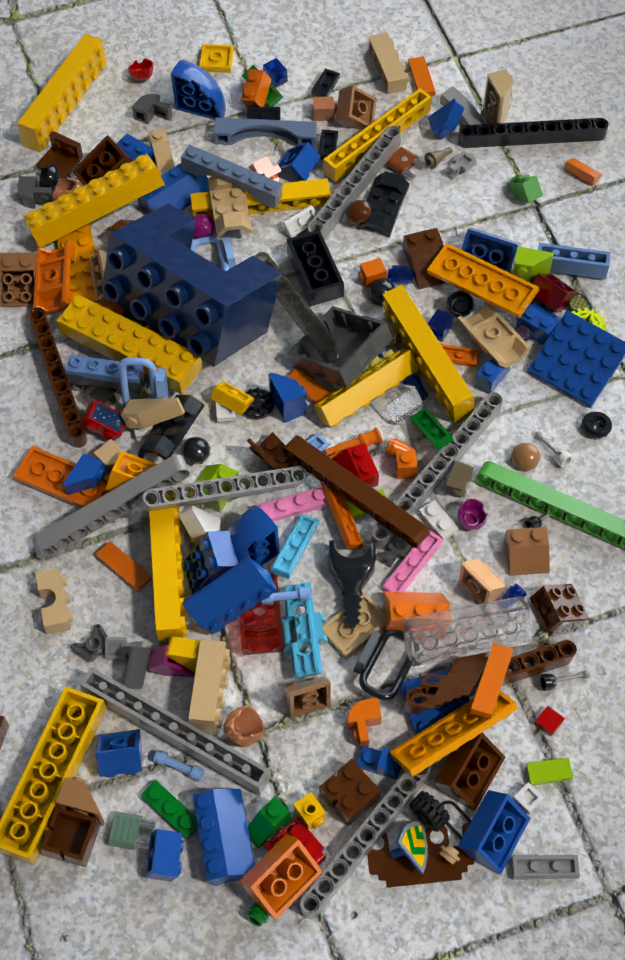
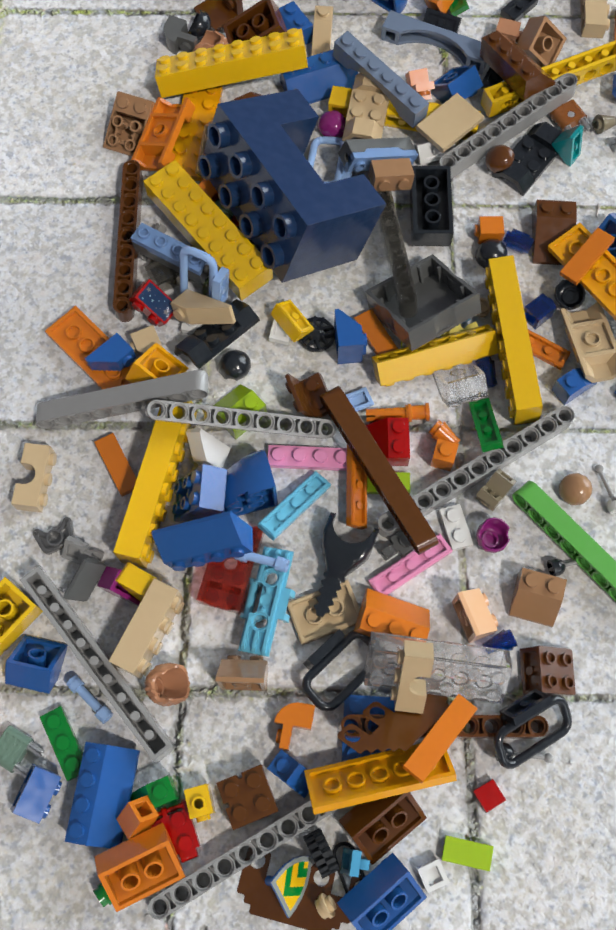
camera: 20 degrees right, 10 degrees up
(253, 238) = (358, 153): none -> piece
(262, 837) = (137, 817): none -> orange brick
(273, 250) = (391, 174): none -> medium nougat brick
(305, 195) = (449, 122): none -> tan tile
(341, 132) = (514, 65): none -> reddish brown slope
(412, 183) = (569, 144): none -> teal slope
(447, 622) = (415, 661): none -> tan arch
(458, 810) = (353, 862): none -> dark azure tile
(463, 267) = (587, 256): none -> orange tile
(550, 641) = (523, 711): none -> black bar

